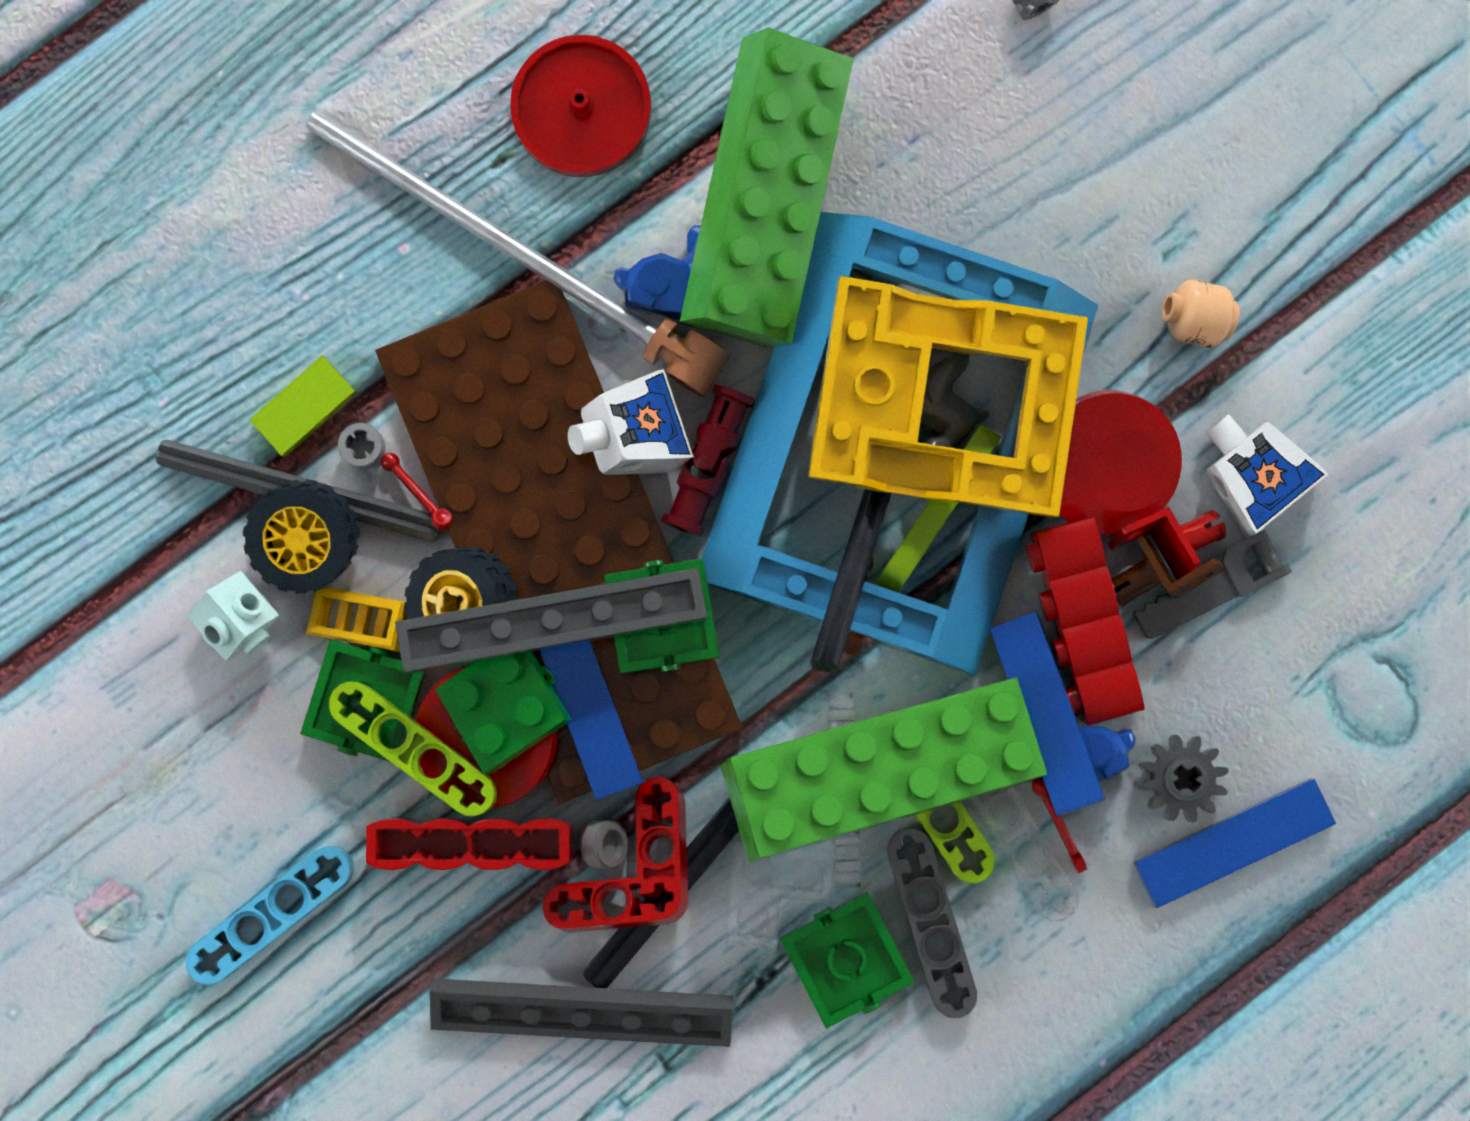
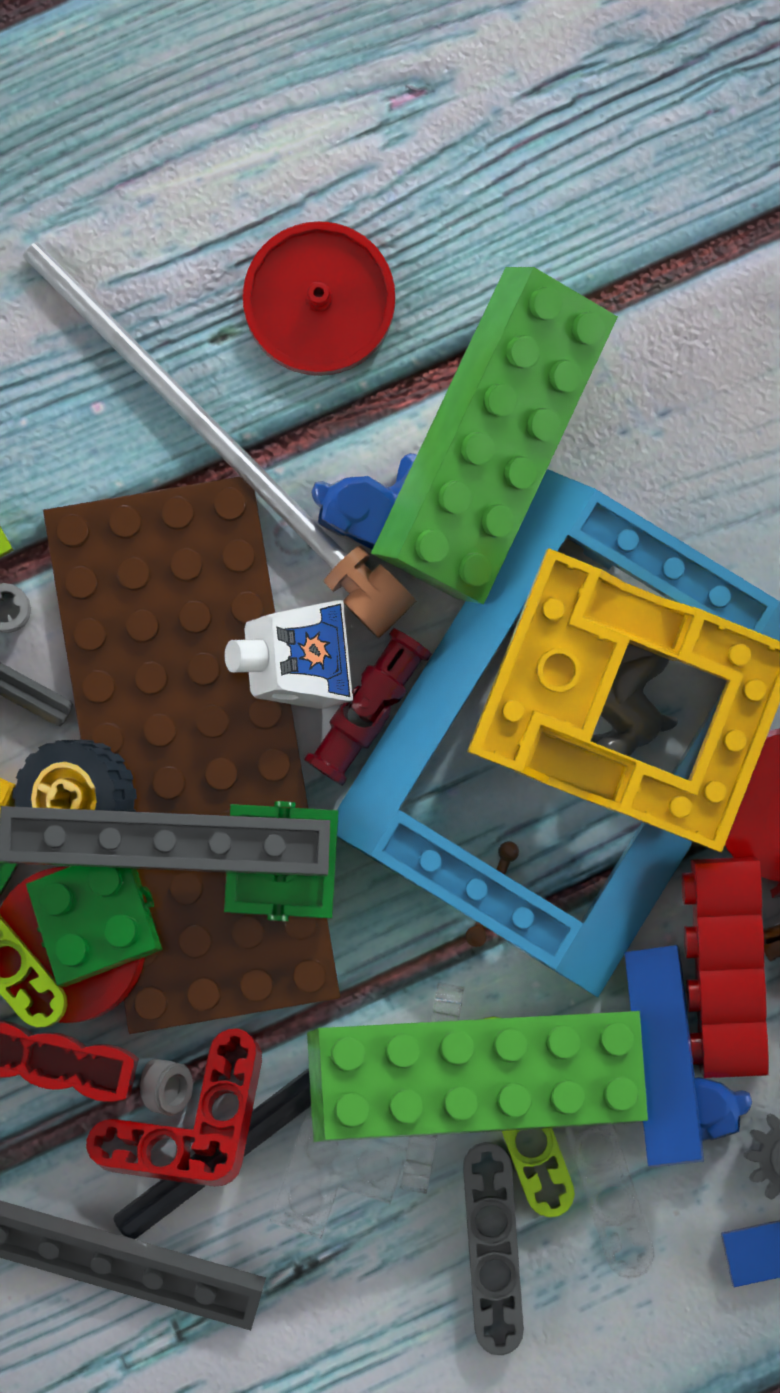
camera: 10 degrees right, 0 degrees up
(440, 517) = (72, 704): red hinge -> none
(594, 718) = (186, 953): blue tile -> none
(846, 960) = (394, 1267): green plate -> none
(849, 581) = (486, 870): black axle -> none
(929, 523) = (587, 824): lime beam -> none
(1077, 860) = (653, 1180): red hinge -> none

